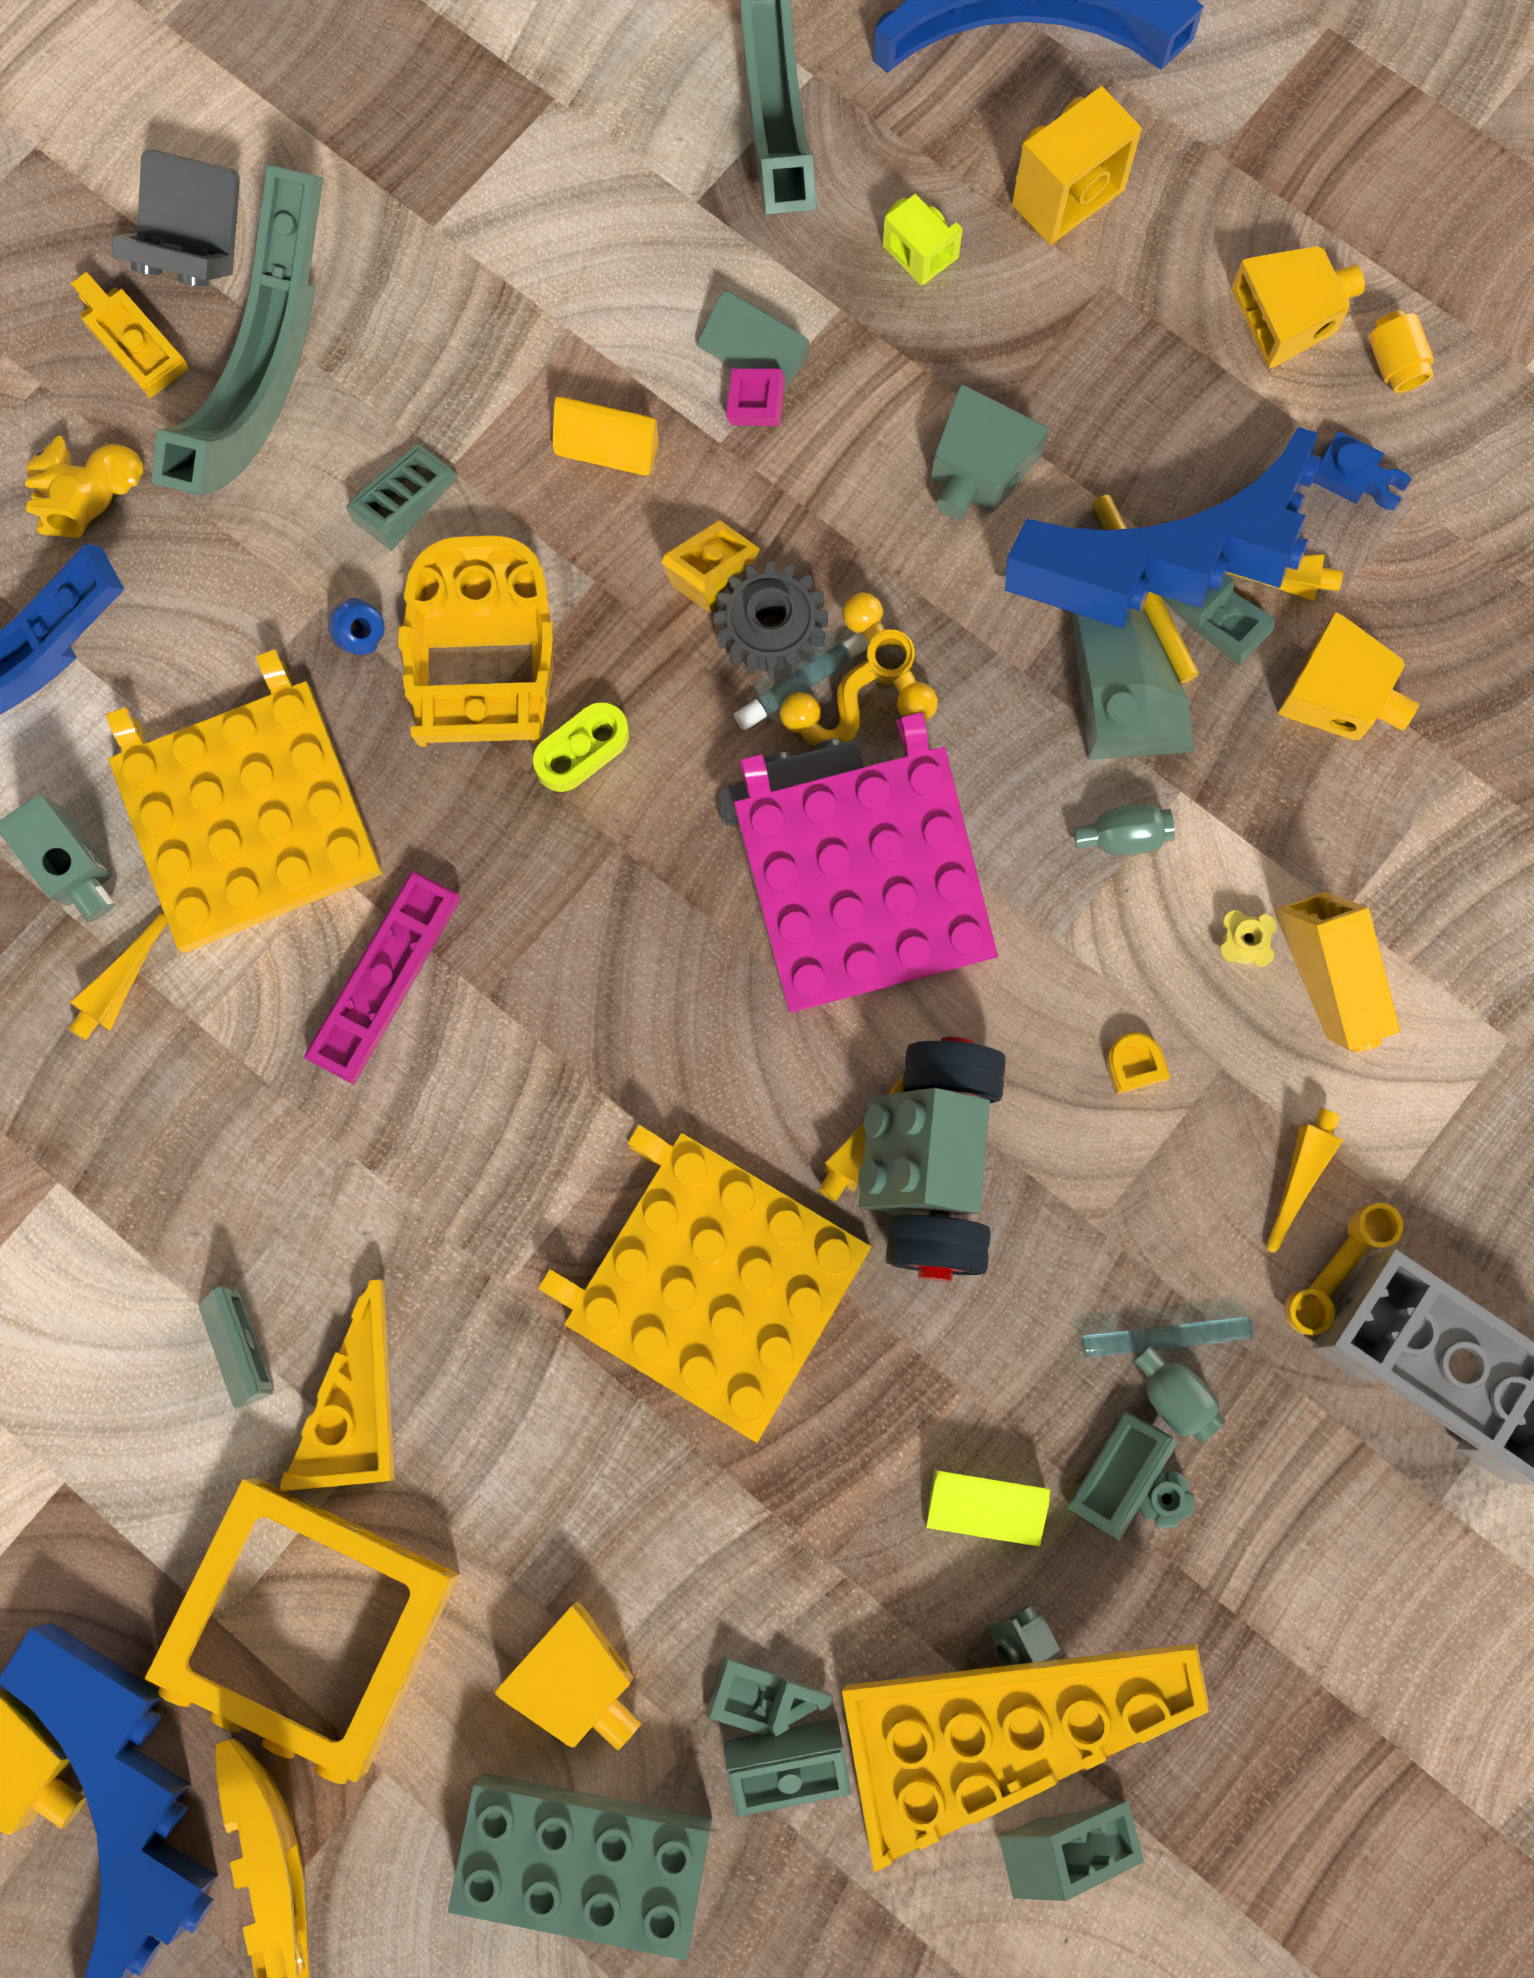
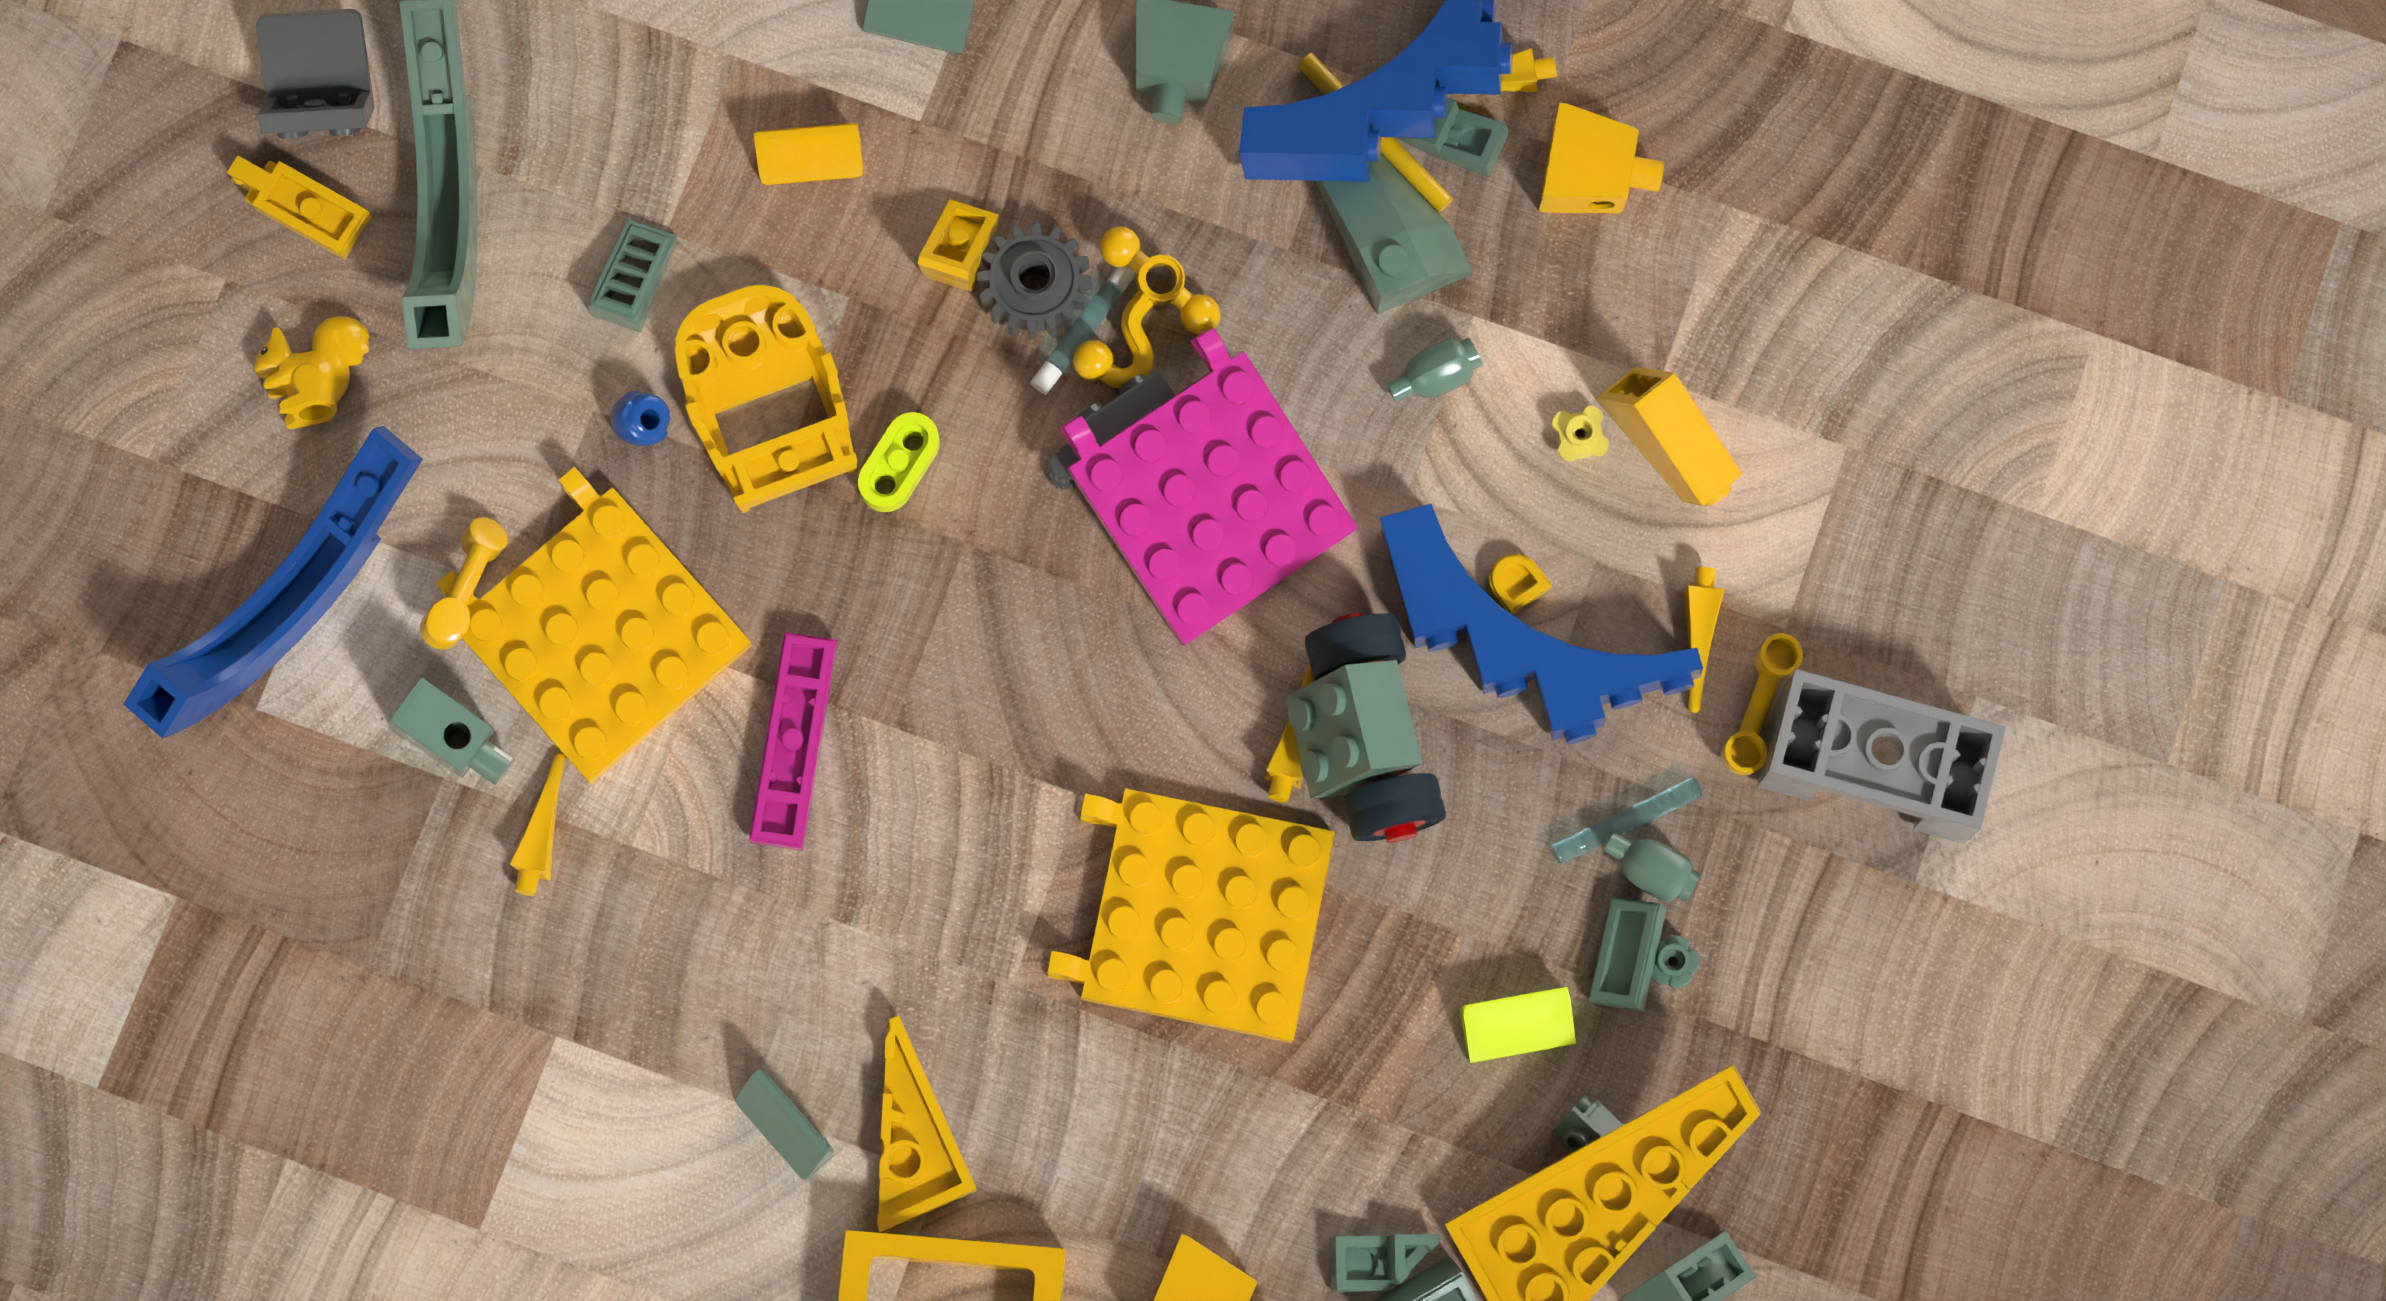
camera: 25 degrees left, 0 degrees up
(99, 749) = (450, 617): none -> yellow bar
(755, 397) = (941, 67): dark pink plate -> none
(1104, 1129) = (1508, 653): none -> blue arch

